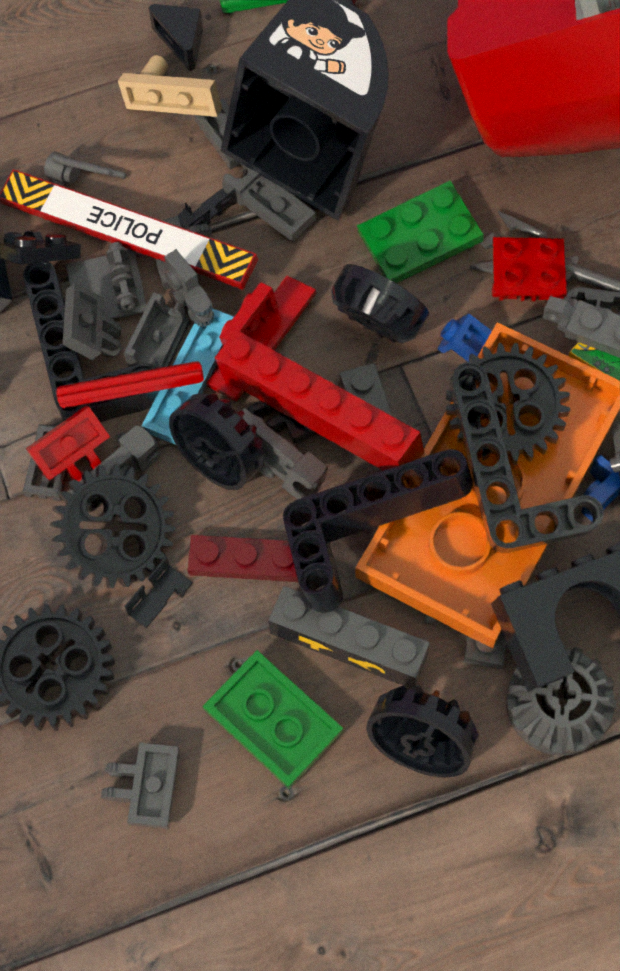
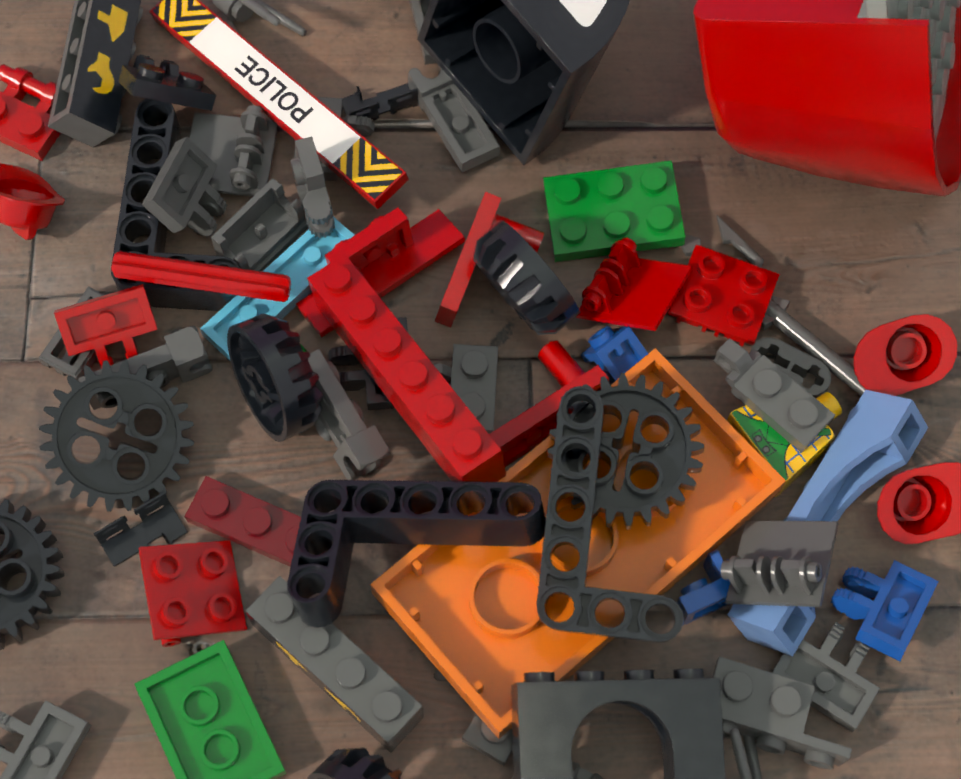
camera: 15 degrees right, 0 degrees up
(216, 623) = (191, 590): none -> red hinge
(326, 275) = (484, 220): none -> red piece
(433, 401) = (534, 424): none -> red piece
(460, 285) = (632, 289): none -> red hinge

